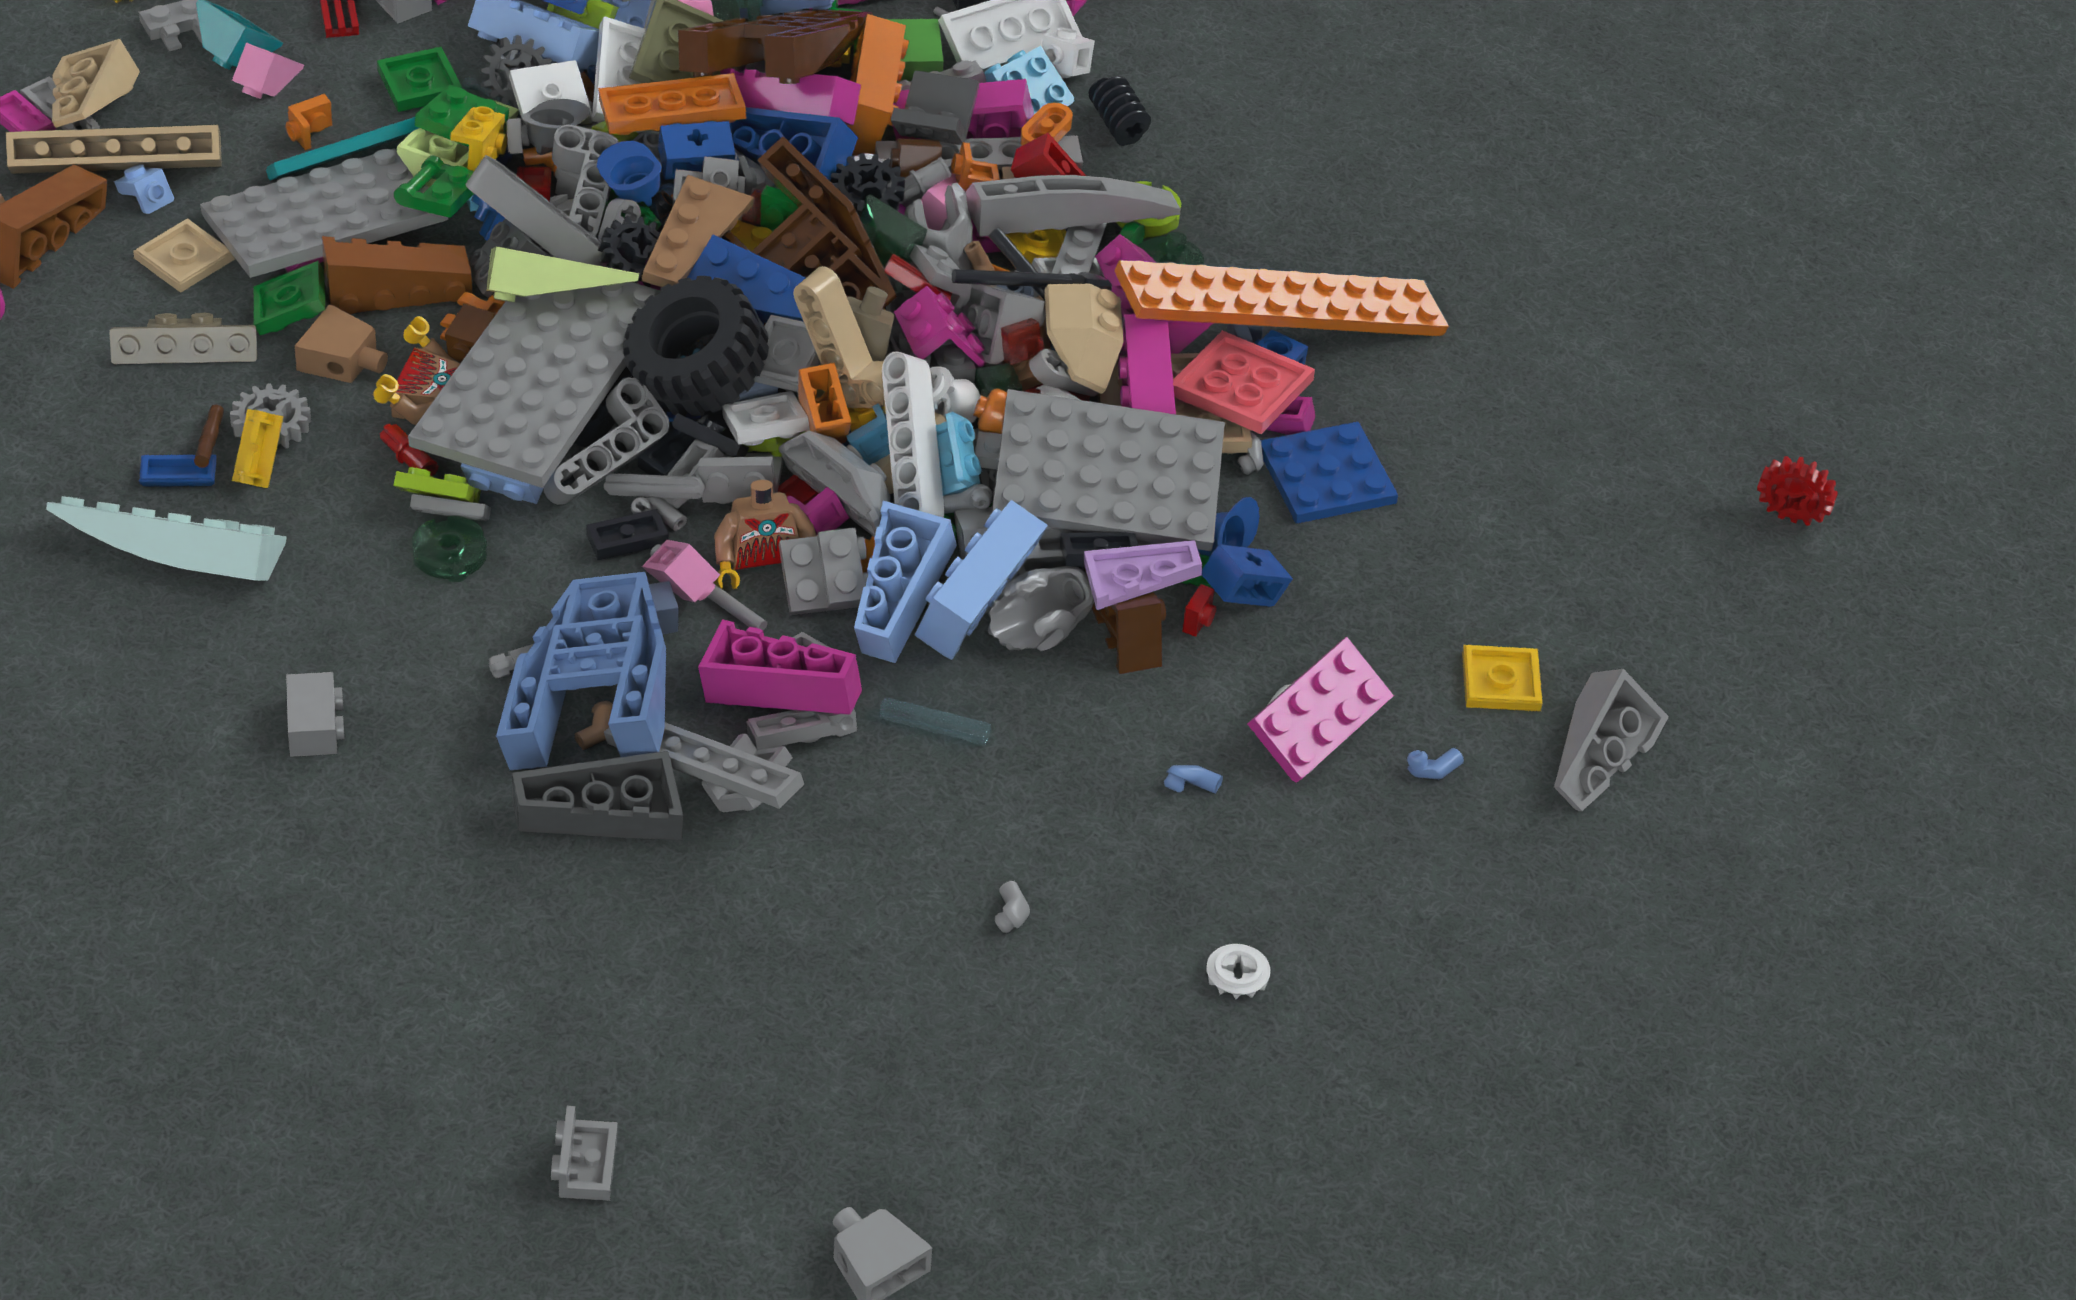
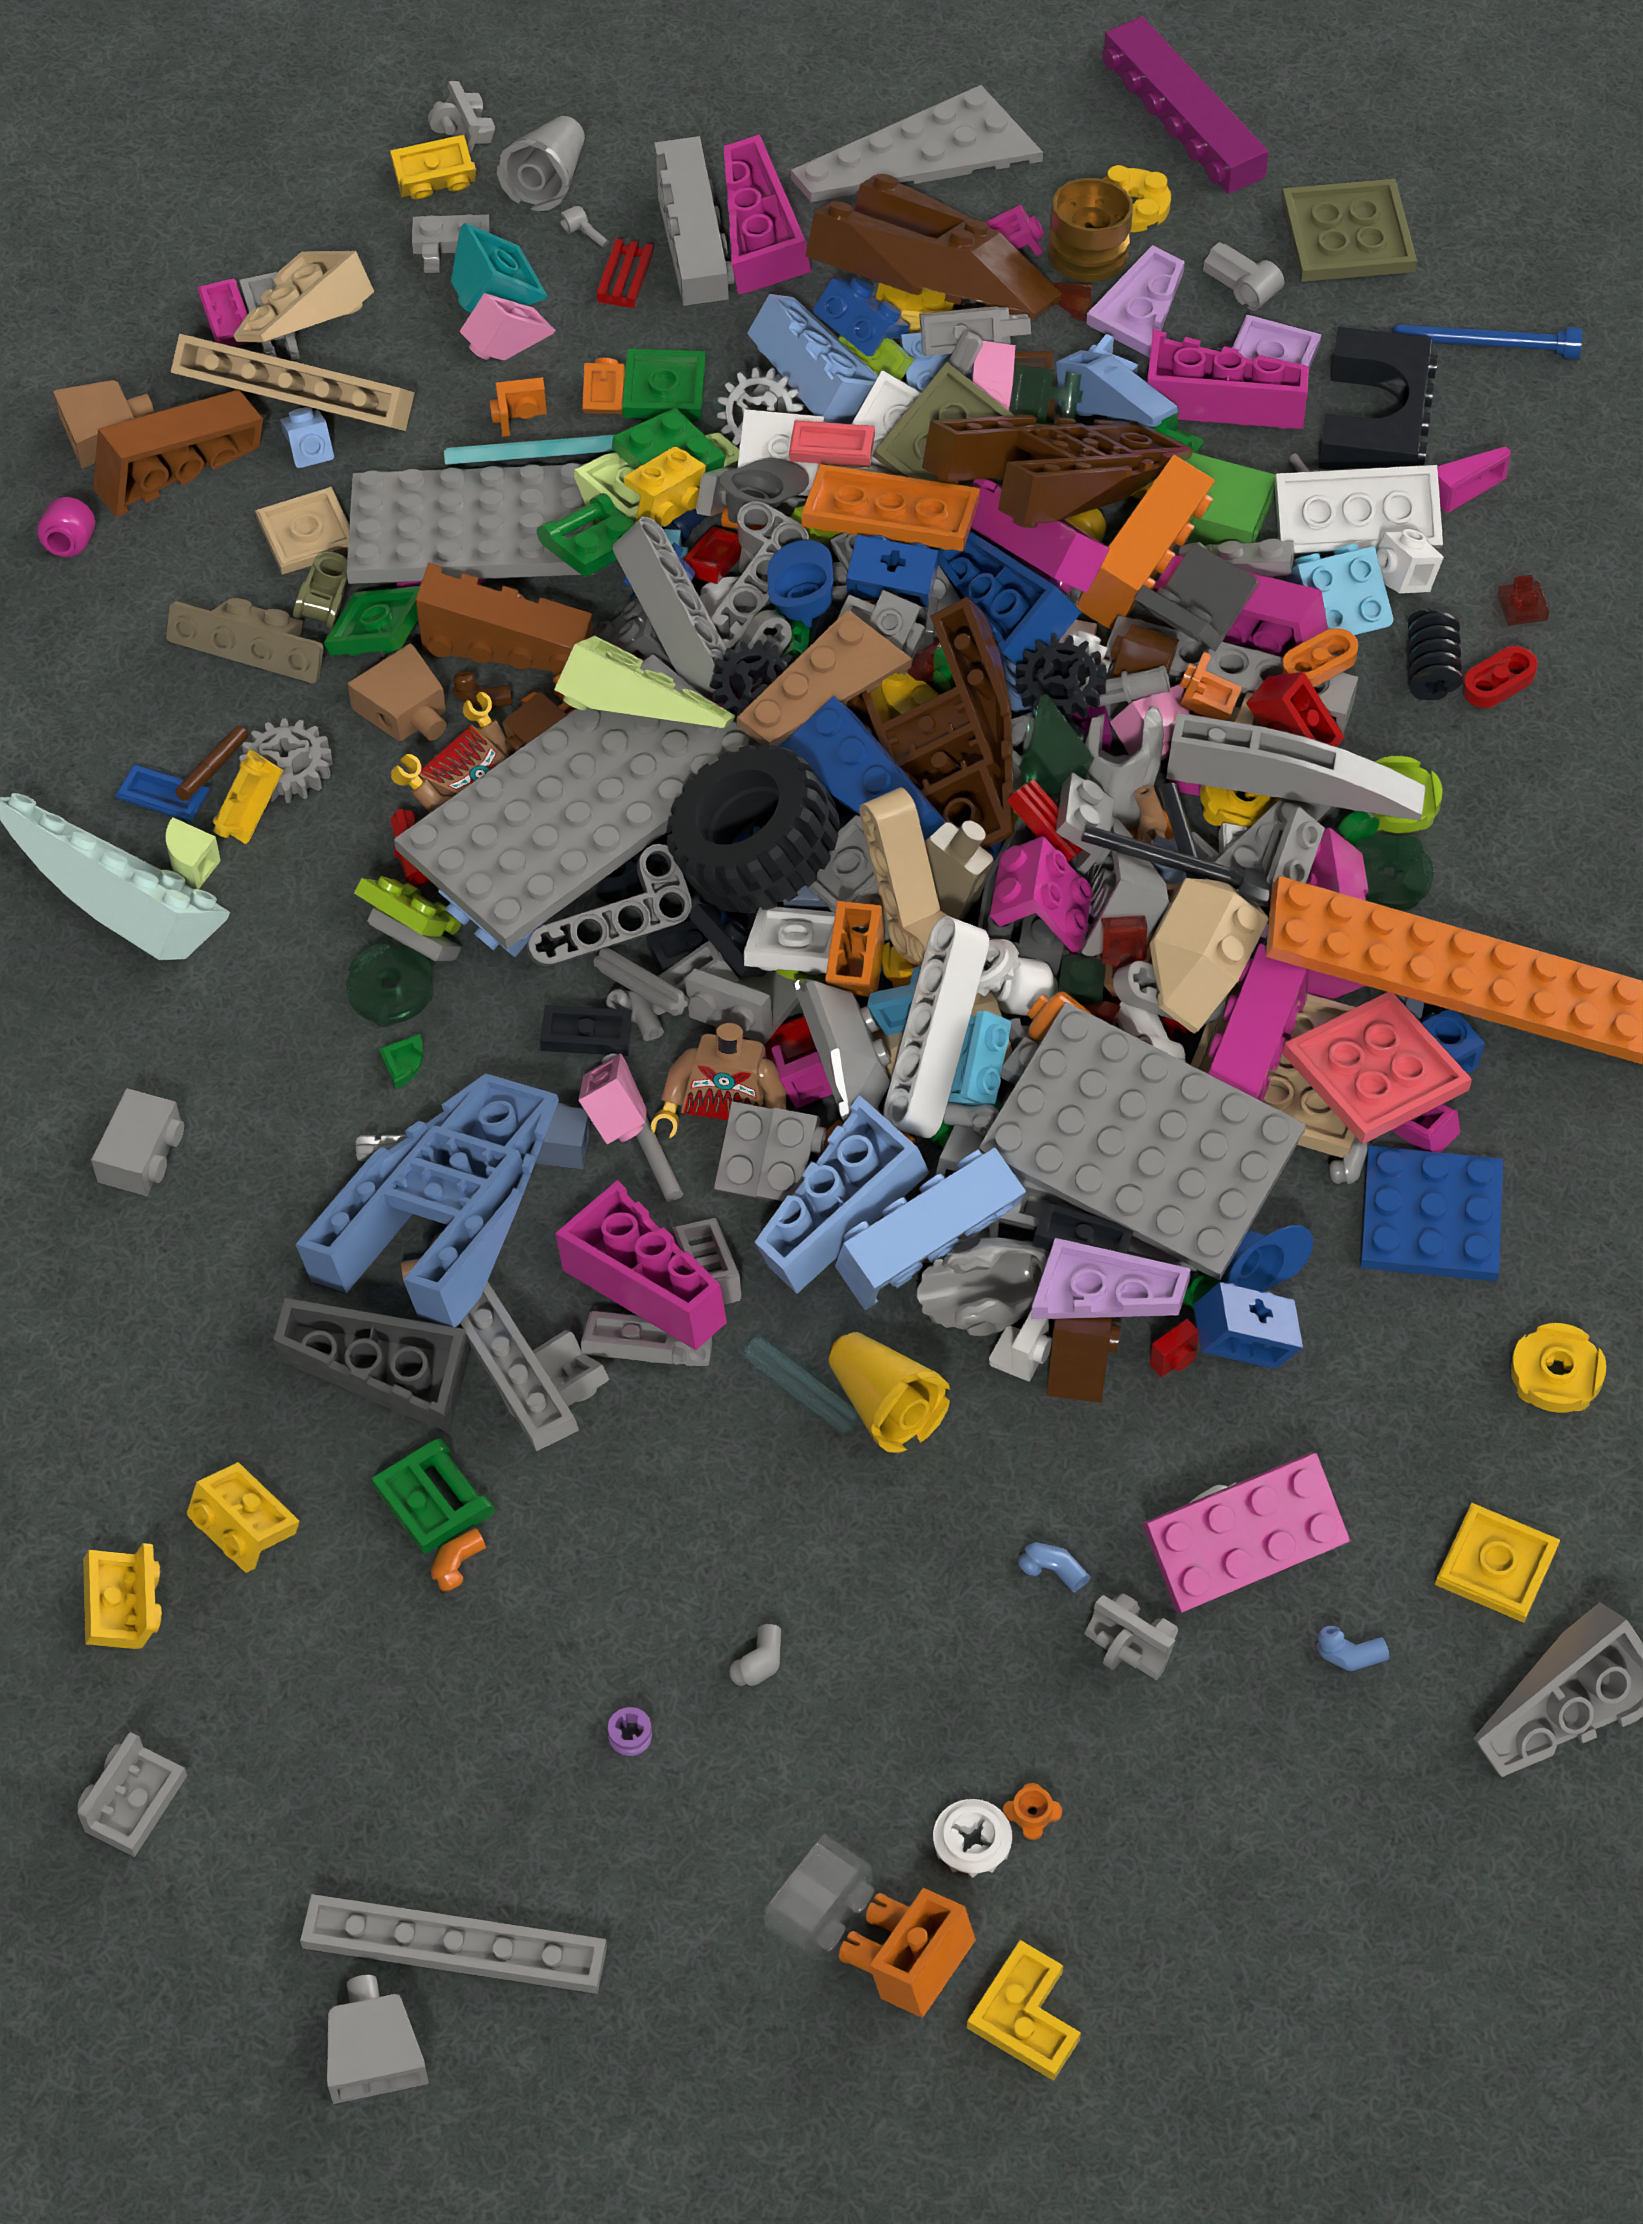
camera: 30 degrees right, 10 degrees up
(230, 499) = (191, 852): none -> yellowish green brick
(231, 288) = (323, 590): none -> olive piece
(373, 92) = (603, 386): none -> orange bracket
(387, 331) = (467, 689): none -> reddish brown arm
(490, 598) = (403, 1059): none -> green tile
(495, 1026) = (121, 1597): none -> yellow bracket
(552, 944) = (240, 1515): none -> yellow bracket
(589, 75) = (832, 443): none -> coral tile
(693, 890) = (420, 1504): none -> green plate
(737, 920) = (450, 1557): none -> orange arm
(896, 1169) = (454, 1943): none -> light grey plate
(934, 991) = (621, 1718): none -> medium lavender bush
(1007, 698) = (889, 1390): none -> yellow cone
(1088, 649) = (1022, 1349): none -> white bracket
(1102, 253) = (1292, 848): none -> light grey bracket
(1152, 1044) = (820, 1897): none -> clear brick
(1161, 60) = (1523, 601): none -> clear red tile
(1174, 113) = (1496, 677): none -> red plate
(1249, 1049) = (920, 1952): none -> orange brick
(1272, 930) = (1032, 1797): none -> orange plate
(1276, 804) = (1130, 1638): none -> light grey hips
(1340, 1076) = (1013, 2017): none -> yellow plate
(1469, 557) = (1551, 1391): none -> yellow plate

